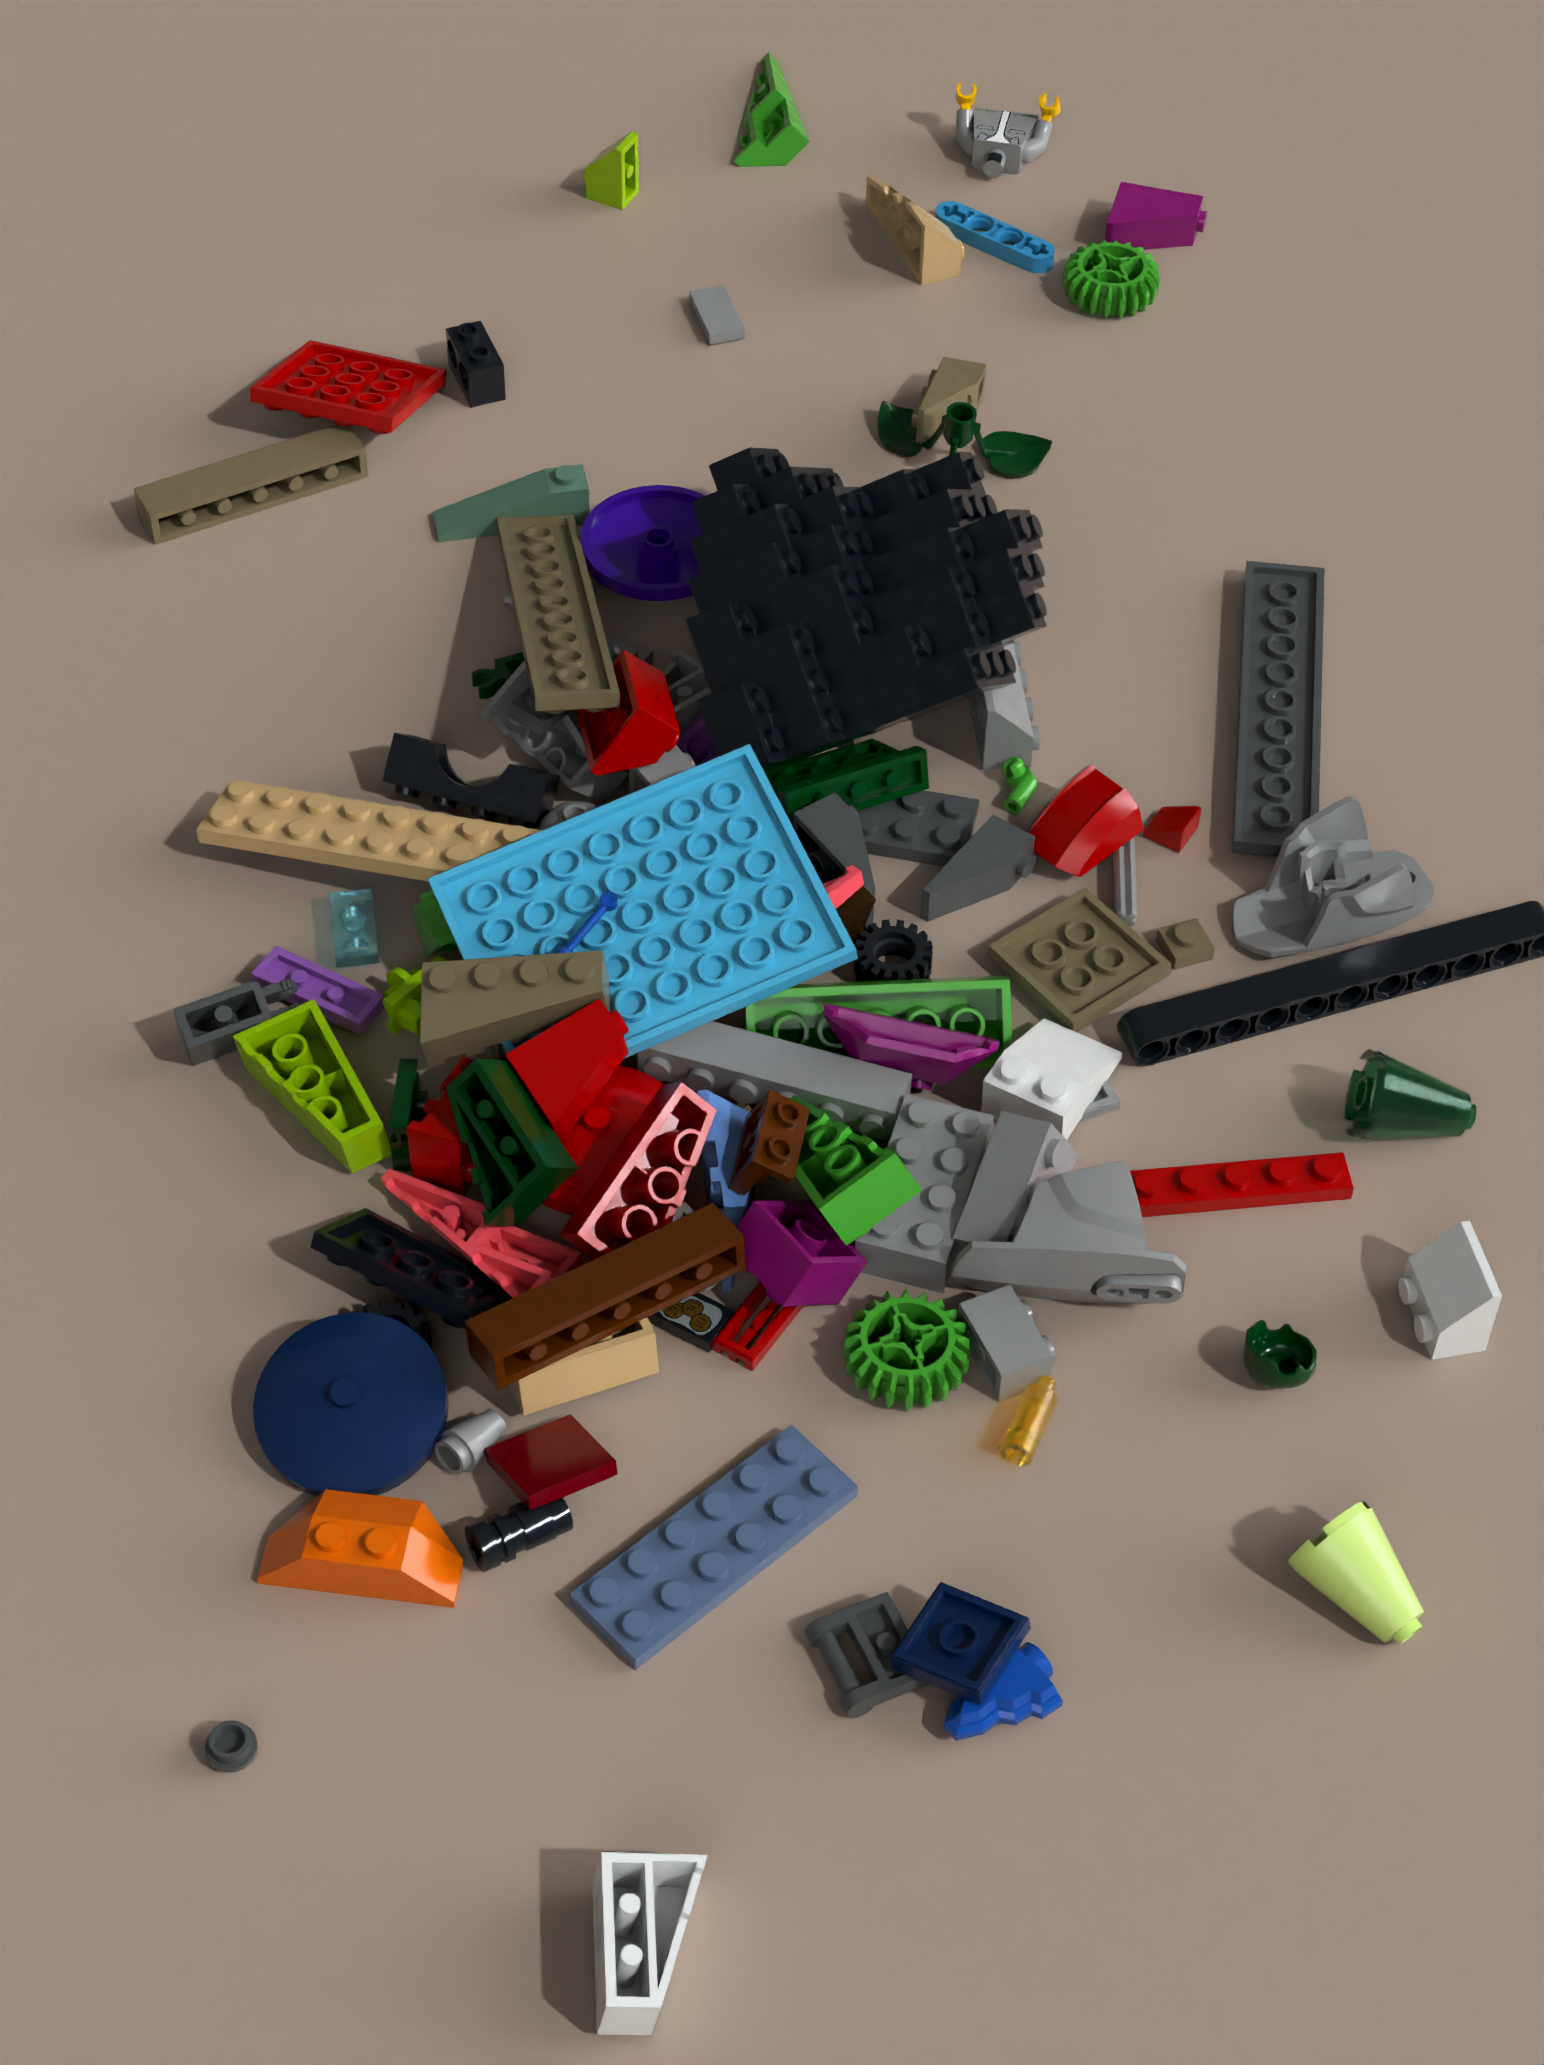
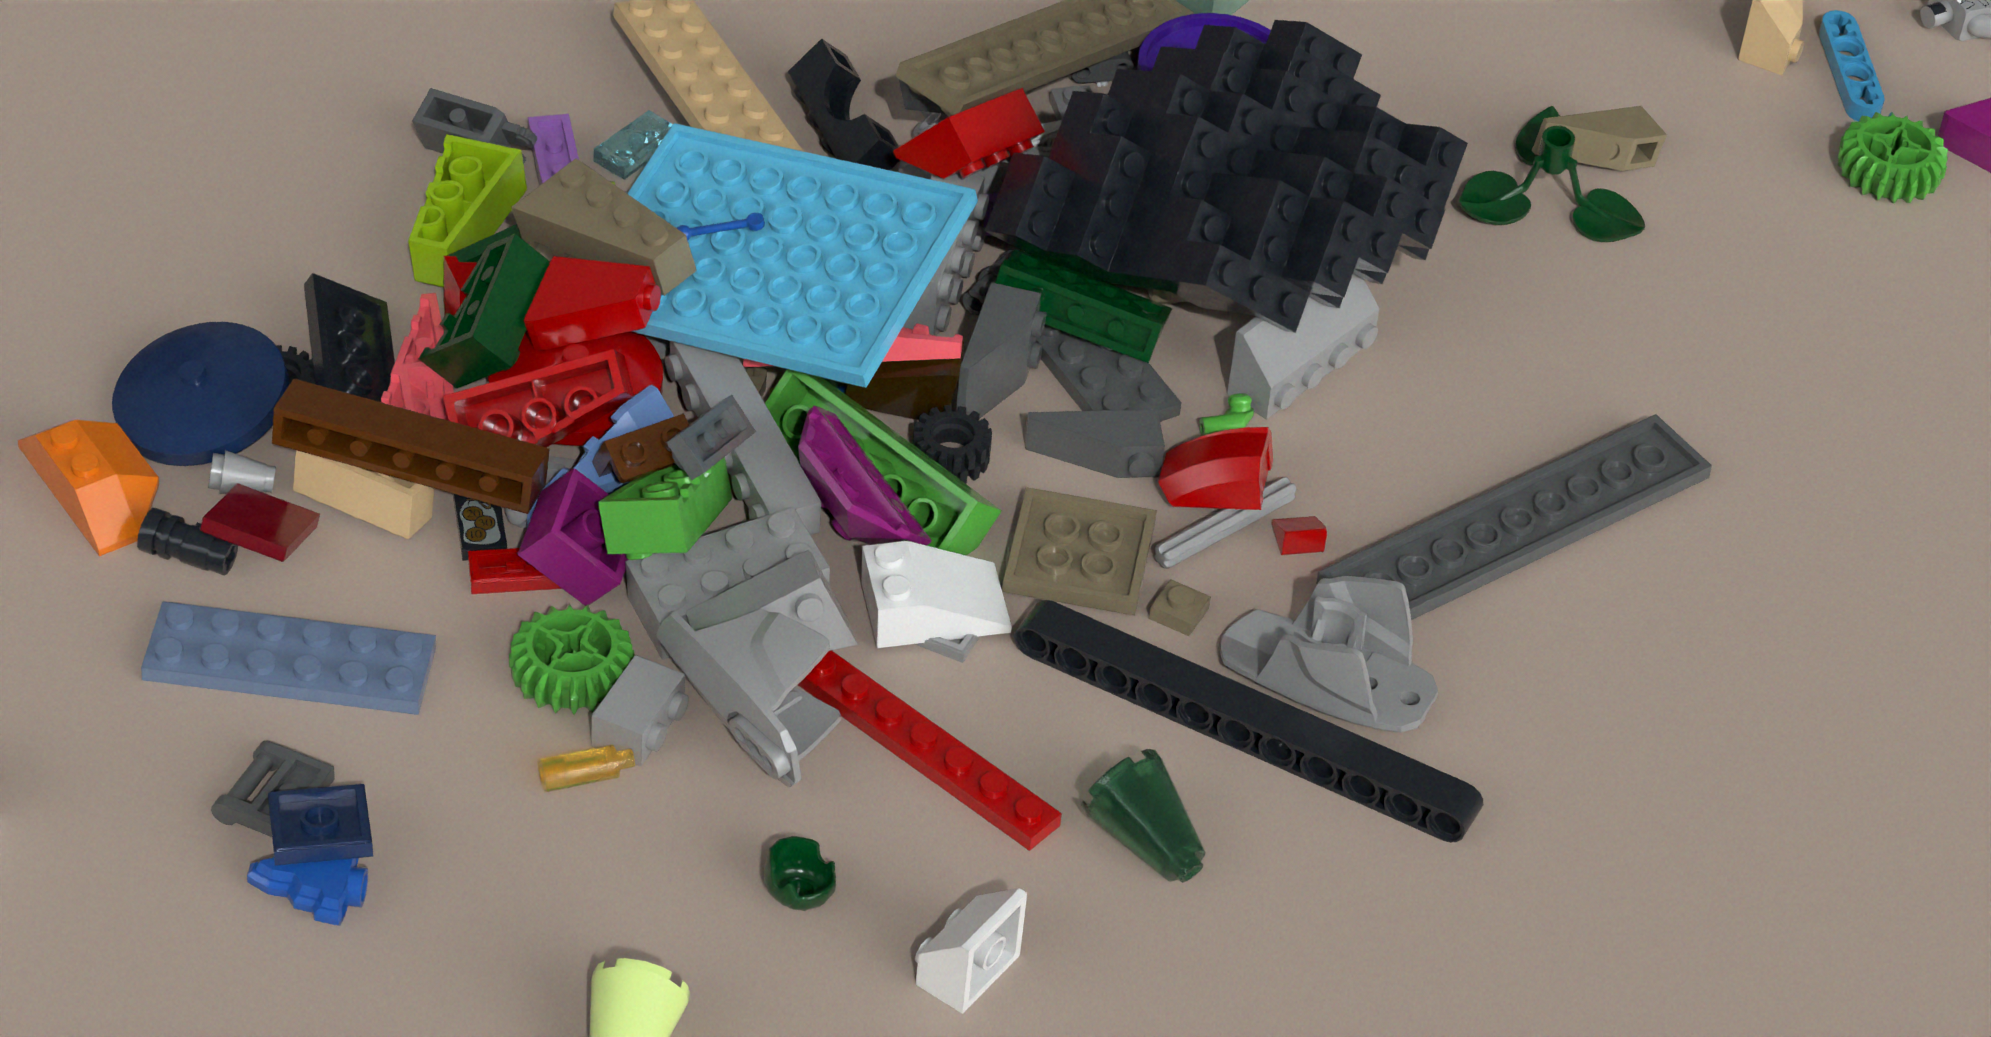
camera: 45 degrees right, 5 degrees down
(813, 1091) = (710, 437): none -> dark grey plate

